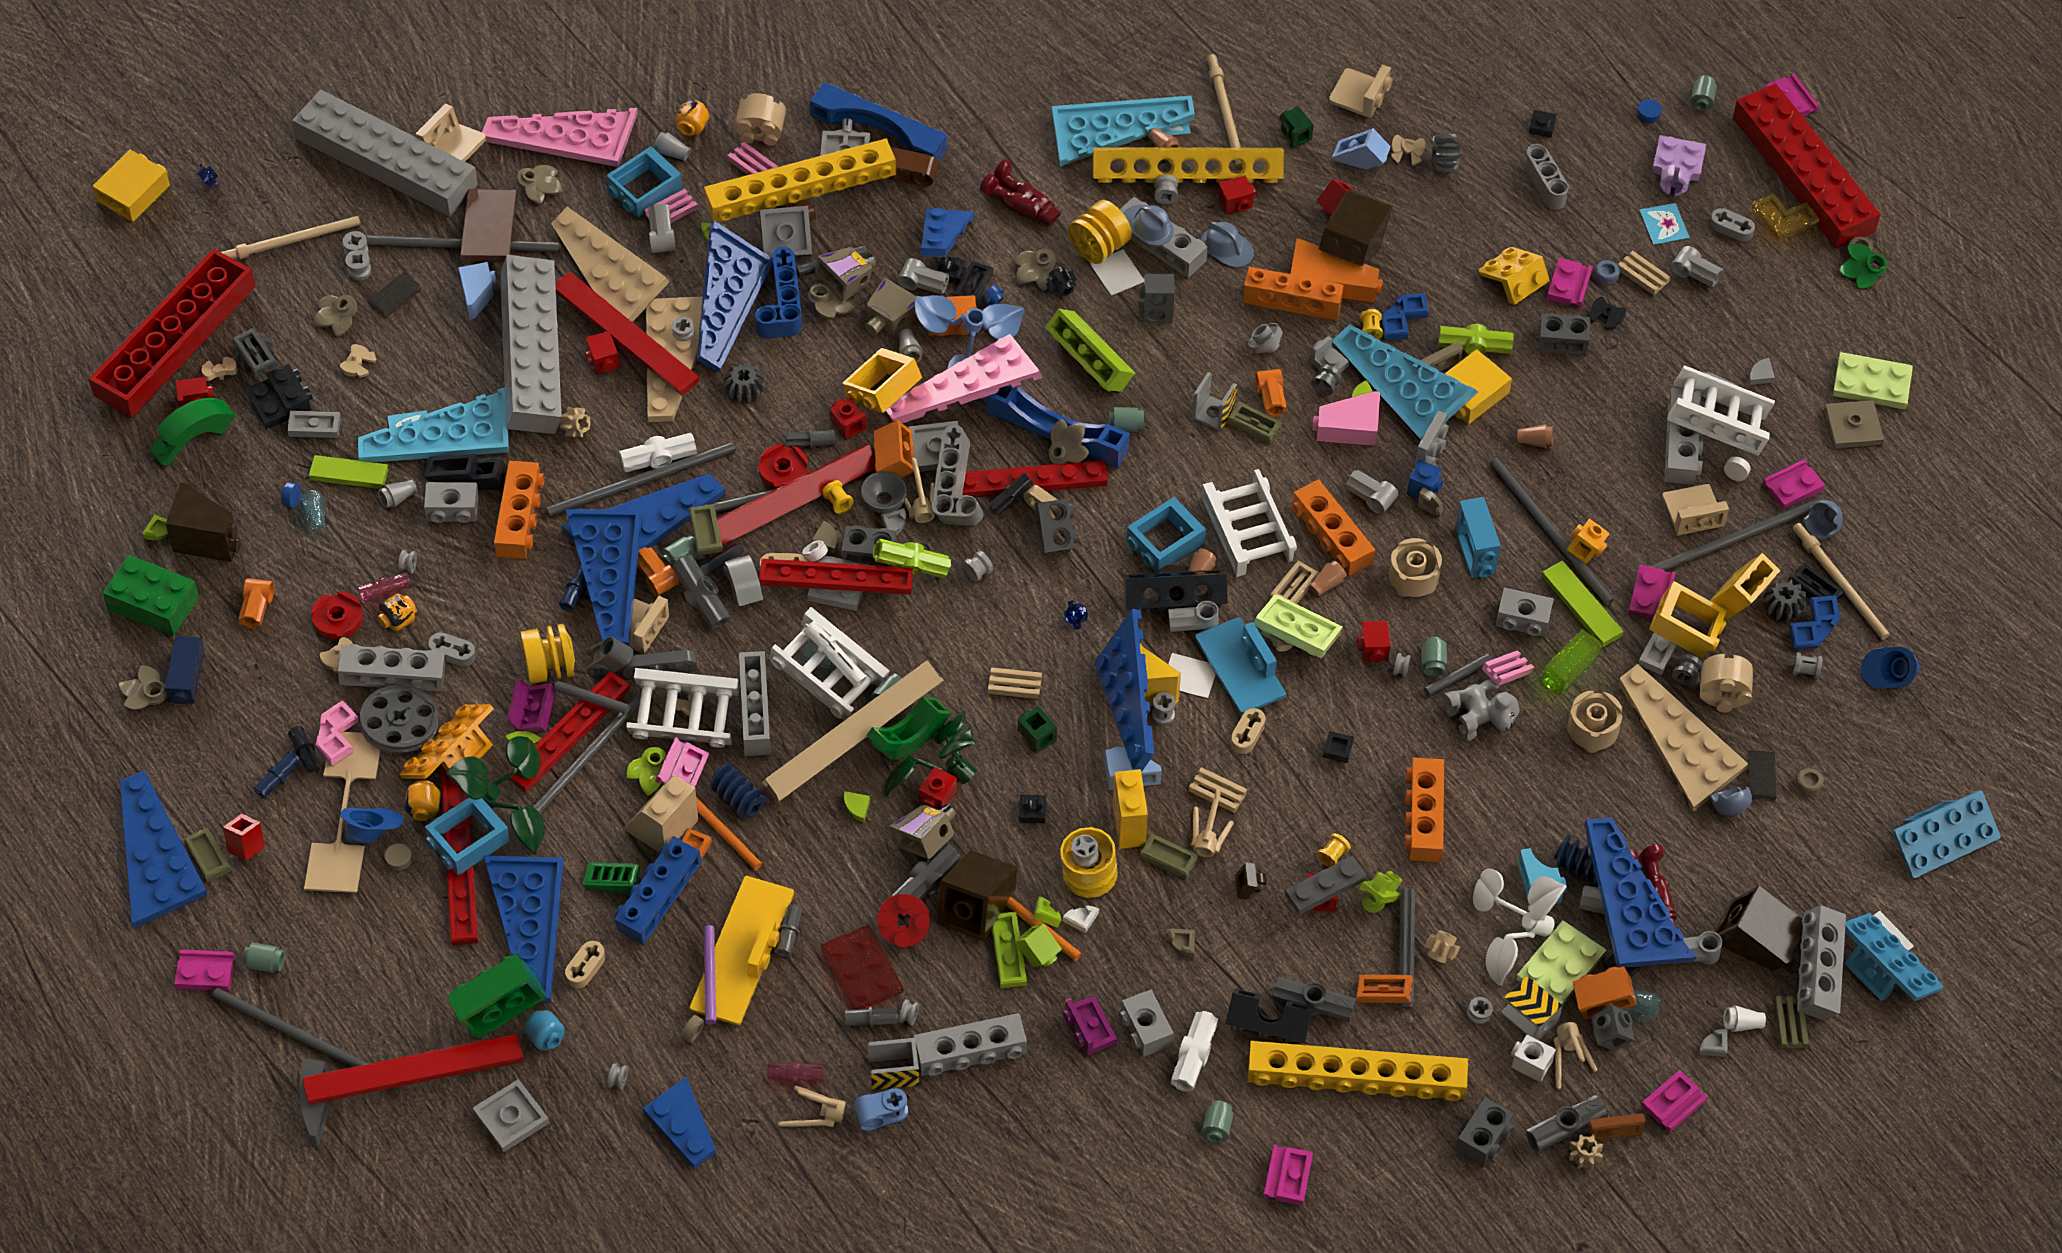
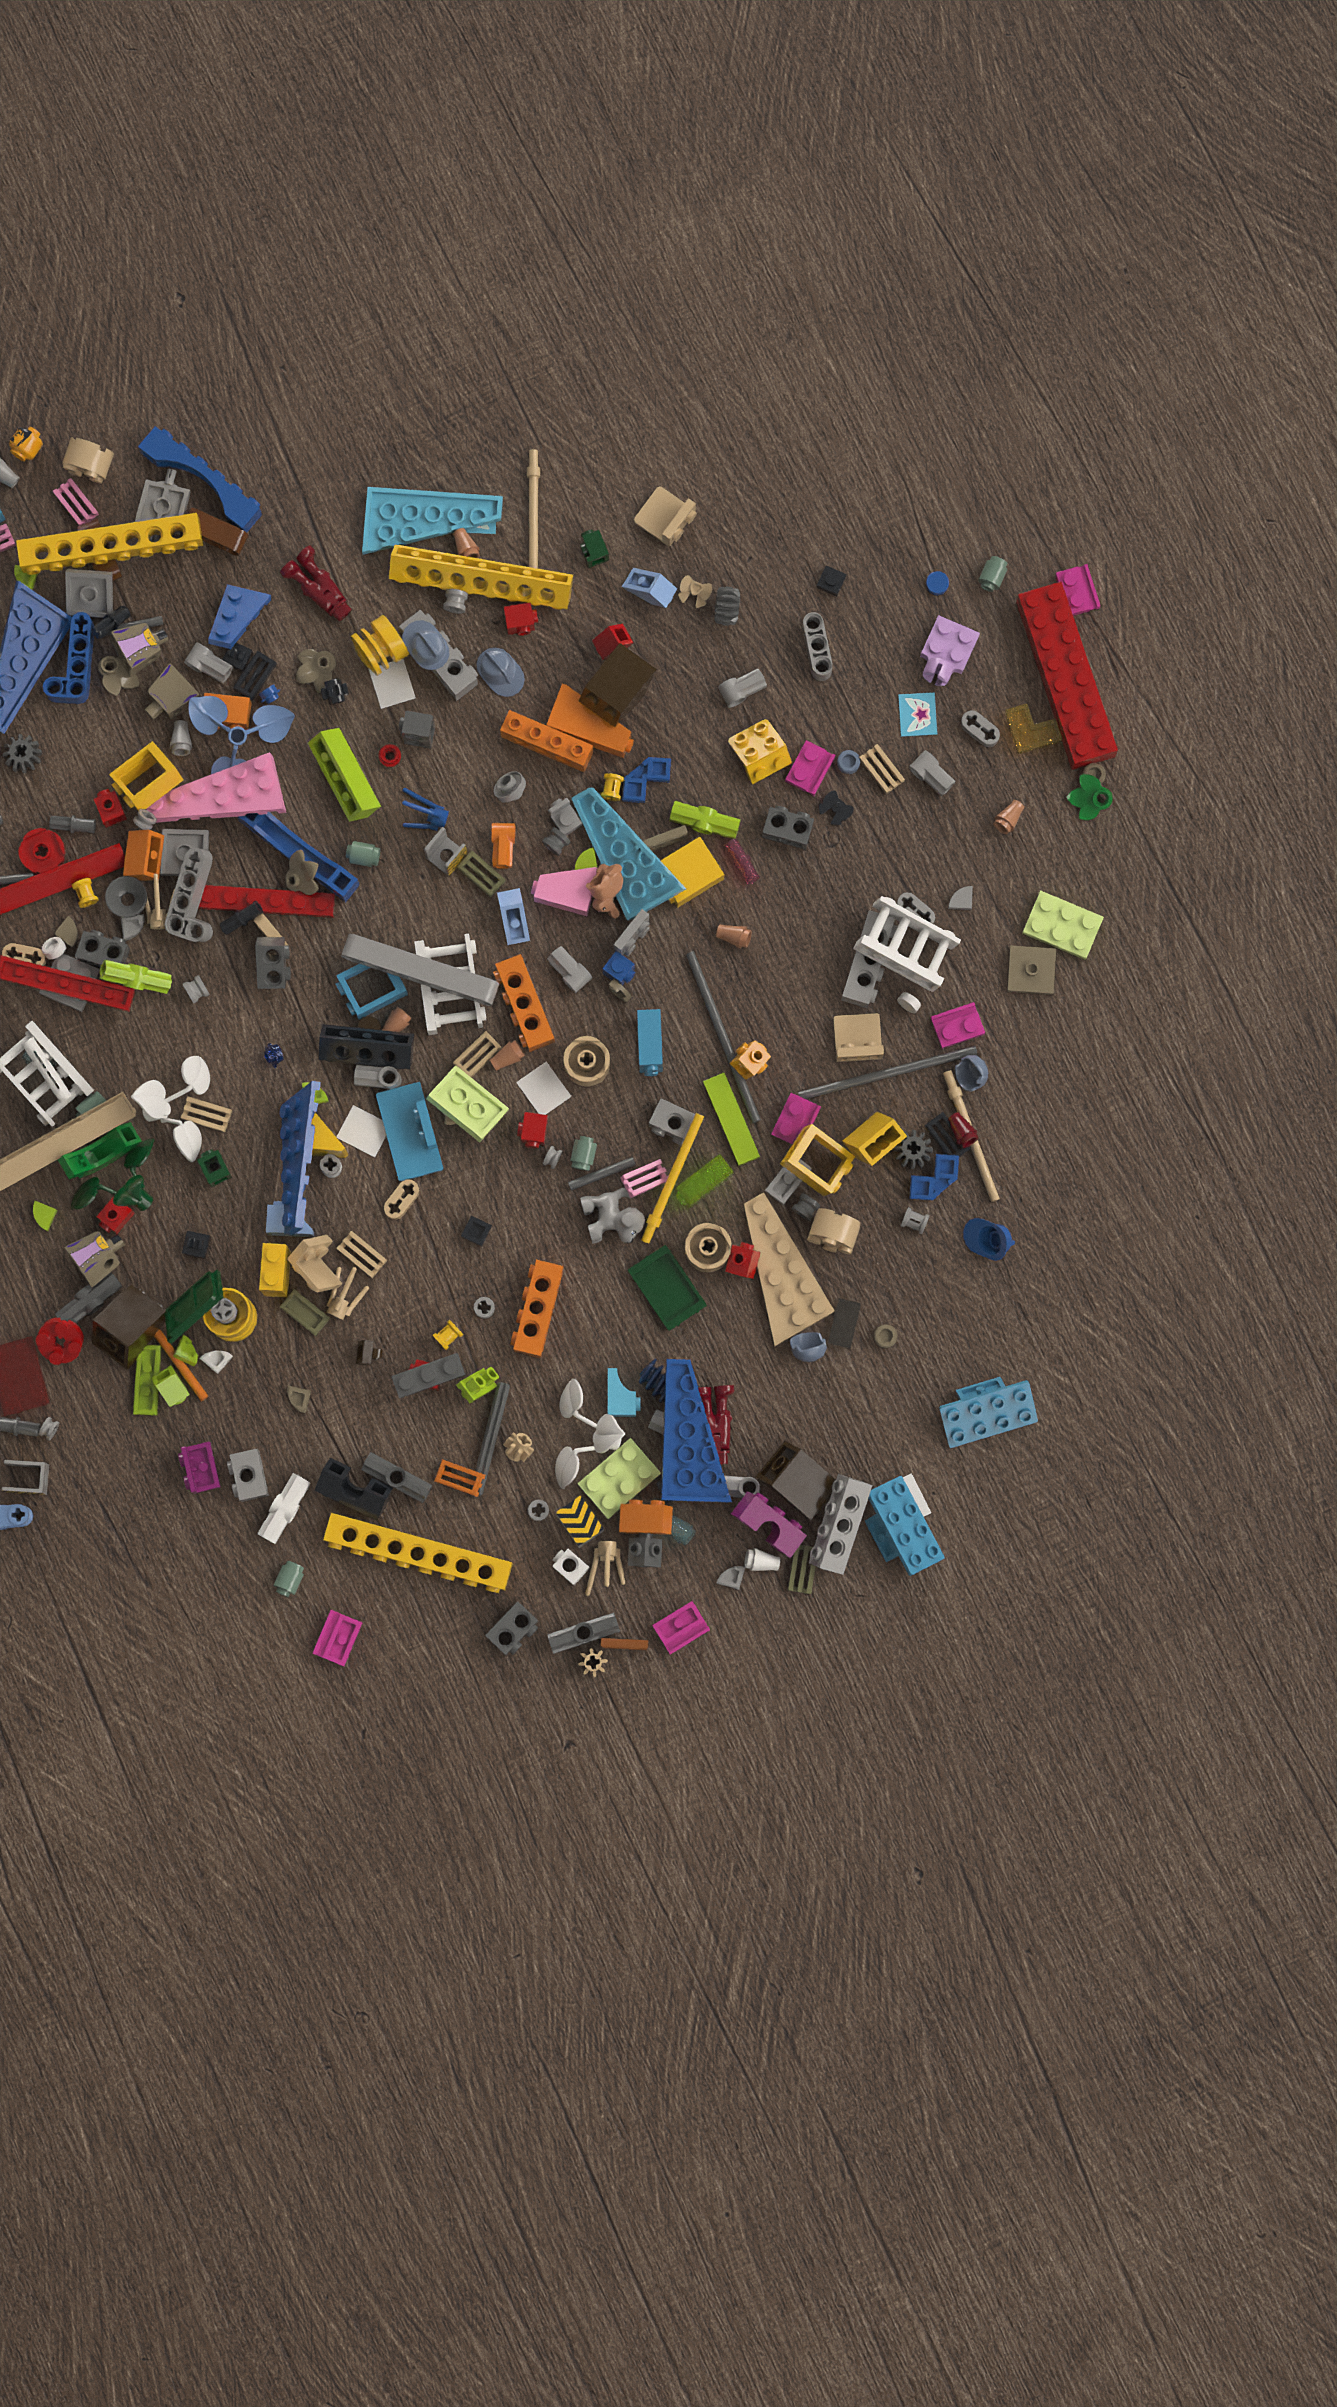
camera: 10 degrees right, 25 degrees up
(812, 252) = (111, 622): none -> black axle
(889, 415) = (144, 819): none -> light grey bush
(965, 680) = (155, 1106): none -> white plant
(980, 1034) = (57, 1466): light grey brick -> none
(1047, 854) = (193, 1304): none -> dark green piece
(1134, 327) = (389, 749): none -> red plate
(1163, 787) = (308, 1263): none -> tan bracket
(1194, 375) = (436, 813): none -> blue plant
(1217, 503) = (420, 969): none -> light grey beam
(1300, 452) = (513, 916): none -> light blue slope
(1370, 815) = (489, 1303): none -> light grey bush
(1373, 605) = (543, 1089): none -> white sticker
(1391, 406) = (605, 887): none -> nougat animal
(1476, 225) = (736, 690): none -> light grey piece
(1528, 705) = (655, 1218): none -> yellow bar
(1535, 380) = (742, 861): none -> clear pink pin
(1559, 771) = (667, 1288): none -> dark green piece
(1636, 728) = (743, 1260): none -> red brick
(1761, 982) = (784, 1535): none -> magenta arch
(1785, 296) = (1007, 819): none -> nougat cone
(1833, 572) = (963, 1130): none -> dark red cone

